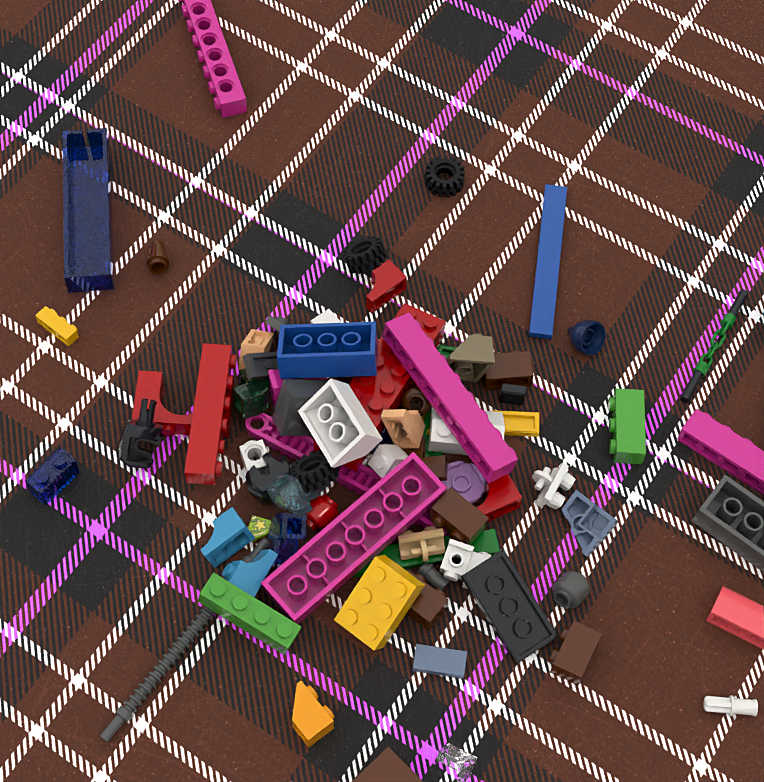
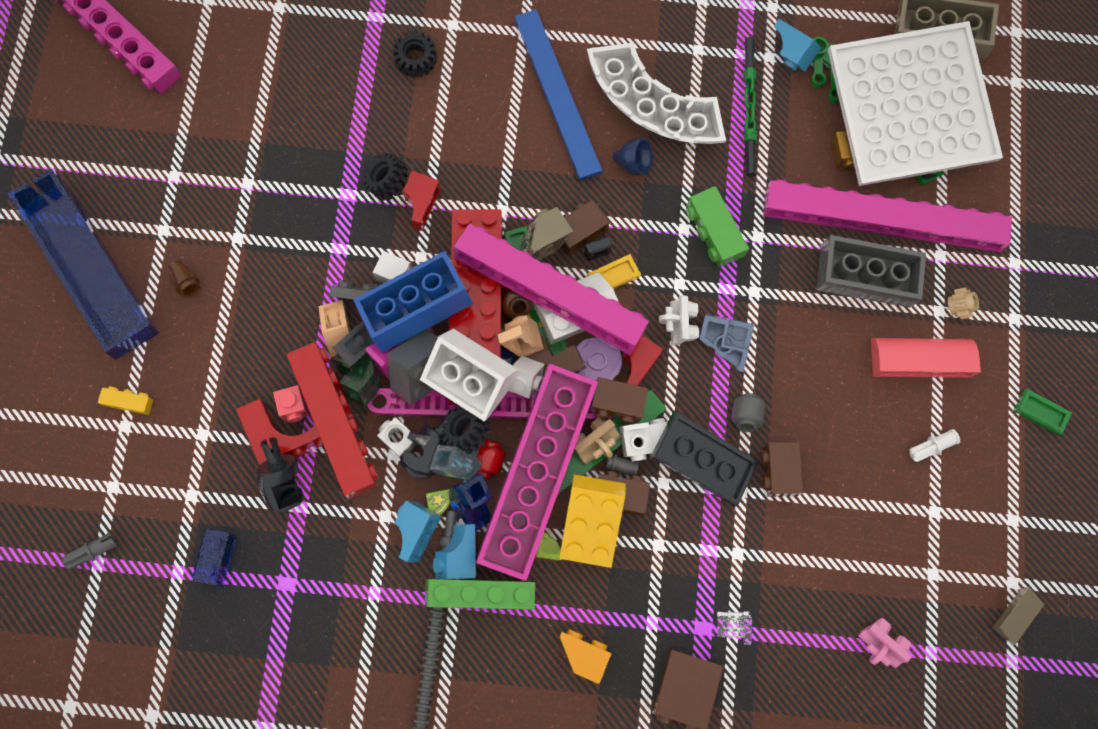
camera: 30 degrees left, 15 degrees up
(183, 389) = (291, 404): none -> coral brick
(329, 611) = (548, 548): none -> lime tile
(439, 661) = (669, 540): sand blue tile -> none
(624, 300) = (651, 102): none -> white brick

